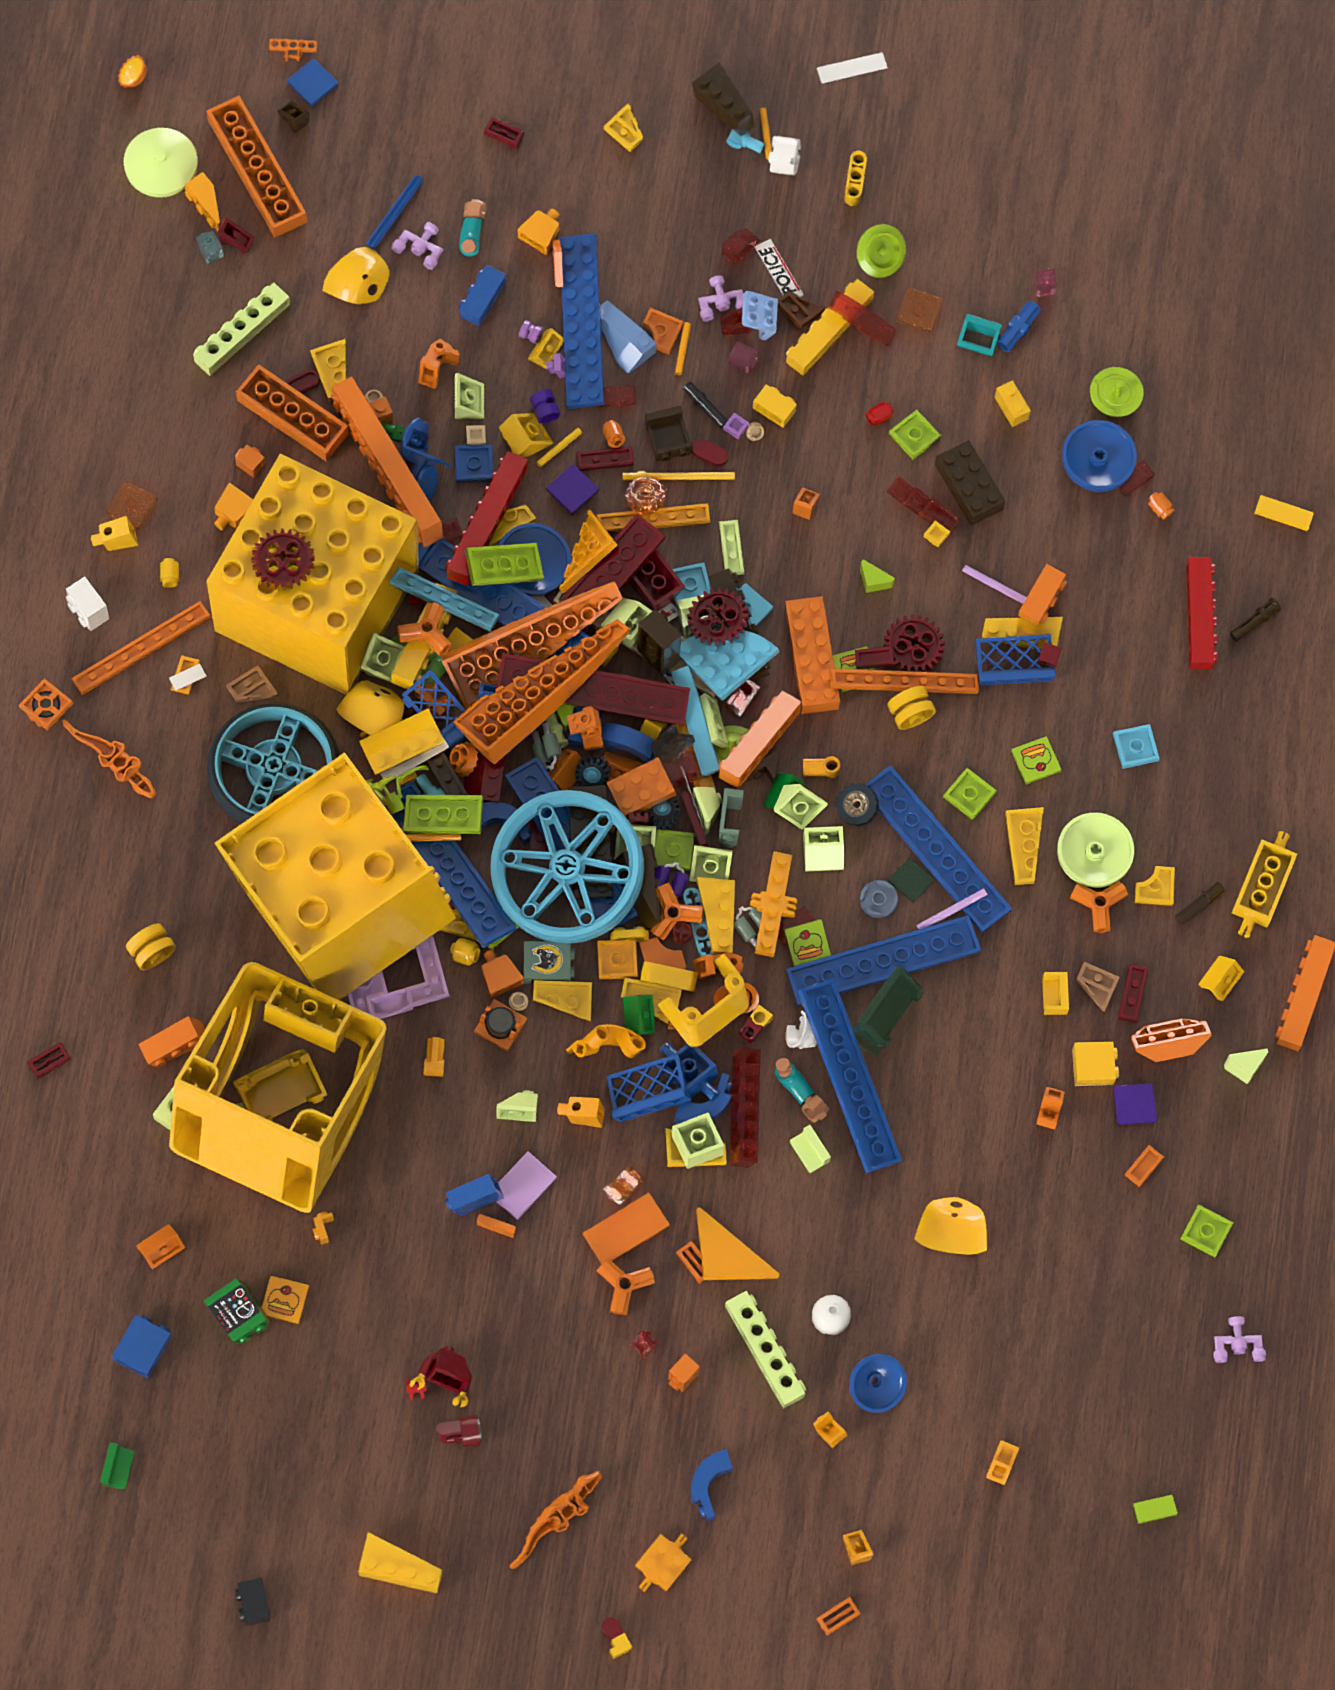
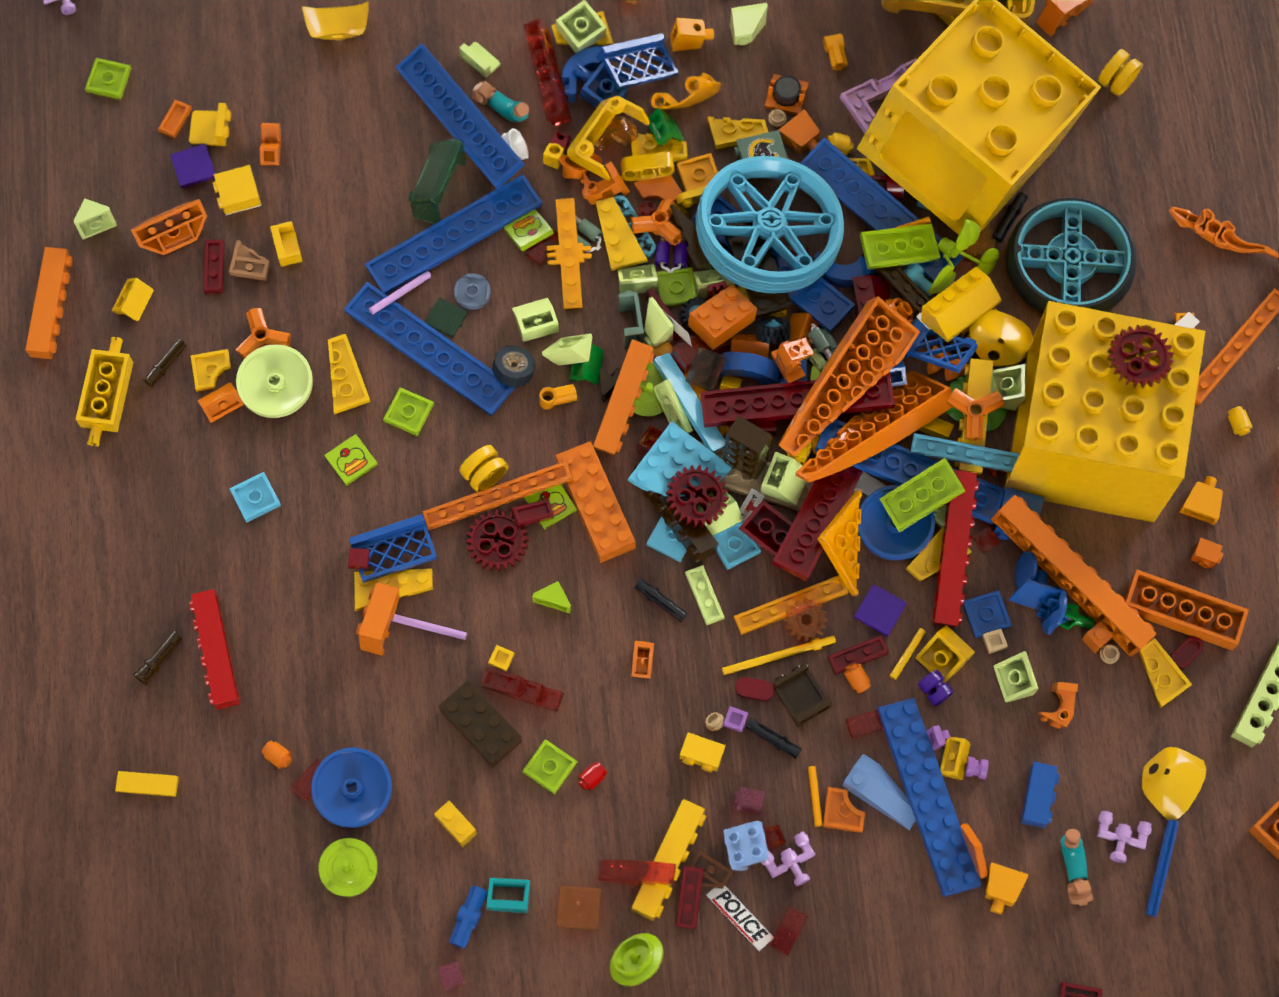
camera: 170 degrees right, 0 degrees up
(779, 557) = (654, 595): none -> black pin
(819, 292) = (689, 897): none -> dark red tile
(1109, 1143) = (210, 126): none -> yellow bracket
(1153, 850) = (220, 402): none -> orange panel

